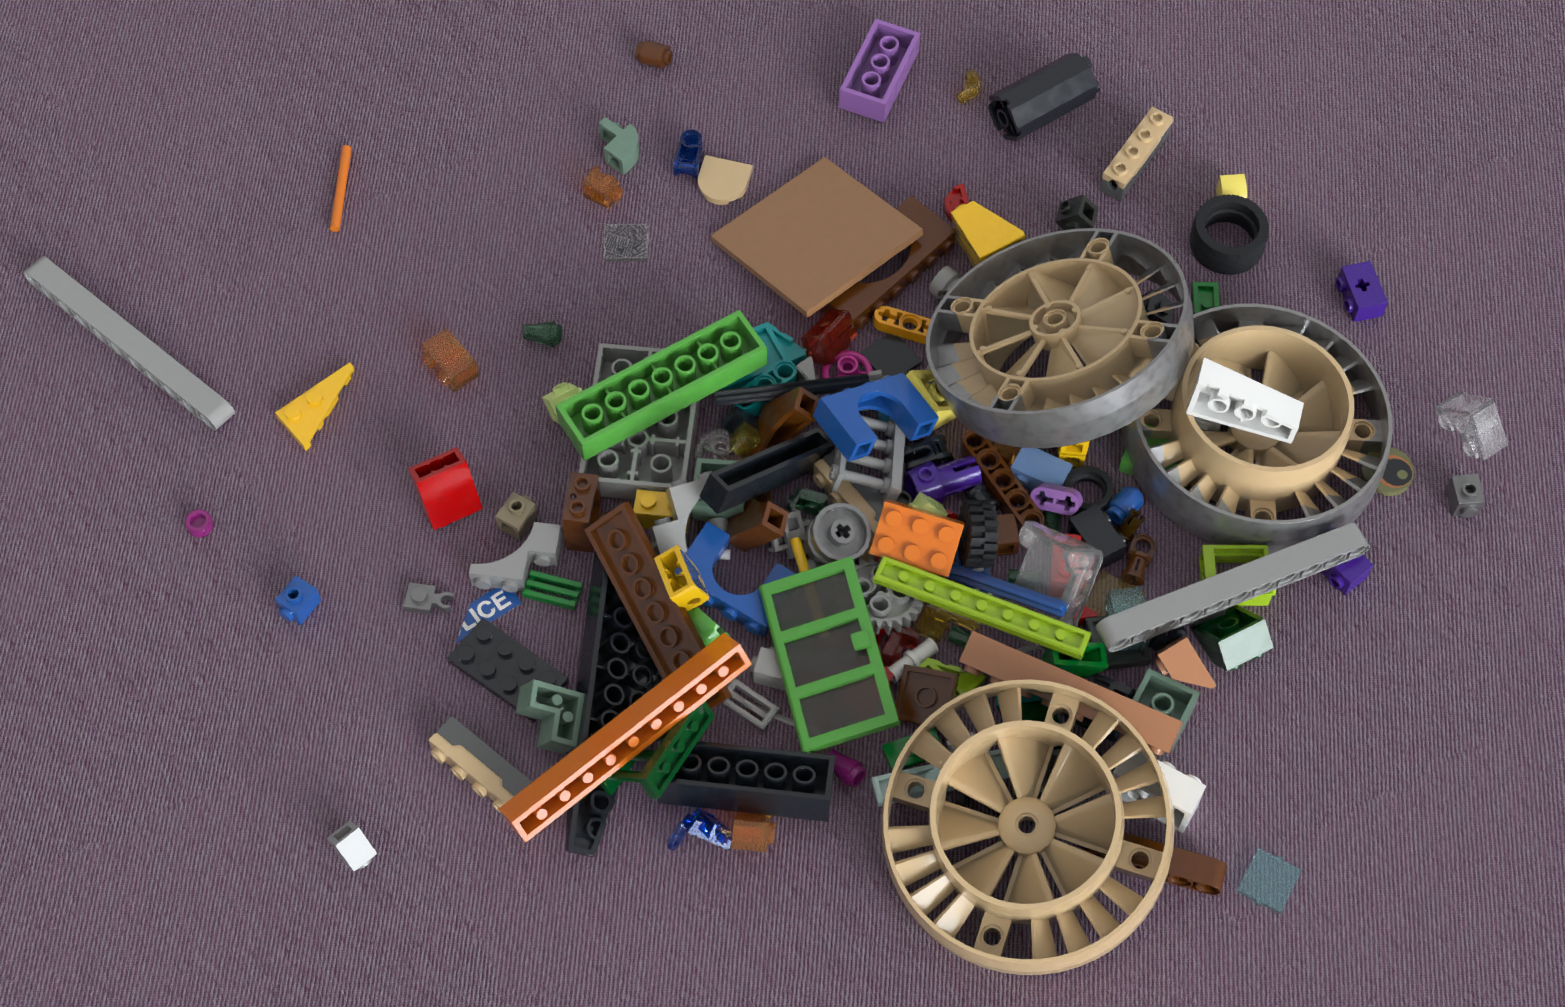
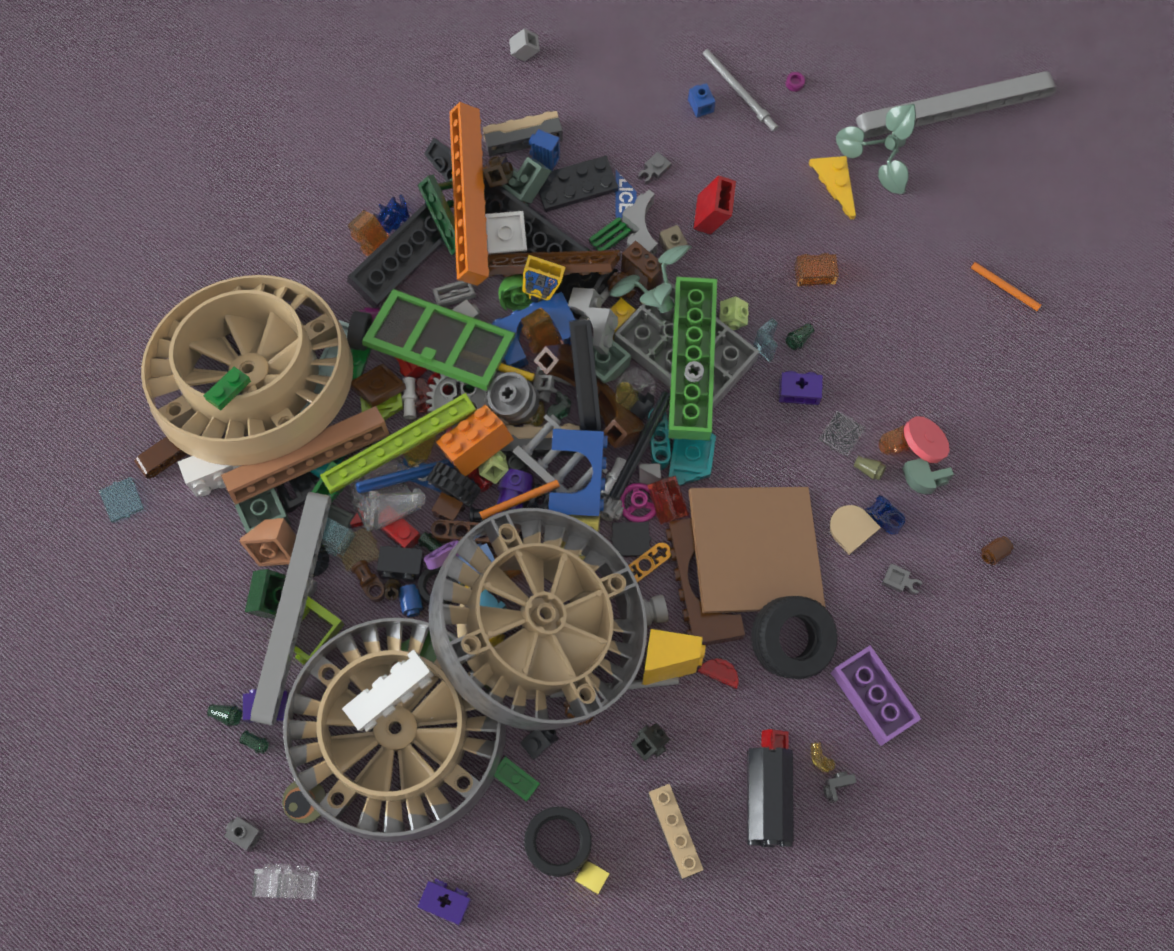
camera: 125 degrees right, 10 degrees up
(213, 350) = (902, 123): none -> sand green plant
(272, 529) = (762, 114): none -> light grey bar
(493, 716) = (545, 148): none -> blue brick
(572, 725) = (498, 171): none -> dark brown brick
(574, 352) = (764, 340): none -> clear light blue panel
(582, 158) = (926, 439): none -> coral wheel
(605, 298) = (792, 393): none -> dark purple brick
(627, 436) = (659, 296): none -> sand green plant
(633, 677) = (505, 232): none -> white tile
(647, 194) = (870, 467): none -> olive cone
(689, 365) = (696, 366): none -> light grey bush
(736, 566) = (539, 330): none -> clear orange brick
(747, 114) = (898, 579): none -> flat silver plate
(880, 749) = (357, 329): none -> black tyre
(882, 151) = (820, 642): none -> black tyre
(943, 458) = (519, 499): none -> orange bar
(982, 61) = (841, 780): none -> dark grey bracket
(986, 130) = (775, 739): none -> red slope
(1087, 764) = (227, 388): none -> green plate
(1380, 550) = (254, 742): none -> clear green pin
(1380, 594) = (226, 714): none -> clear green cone

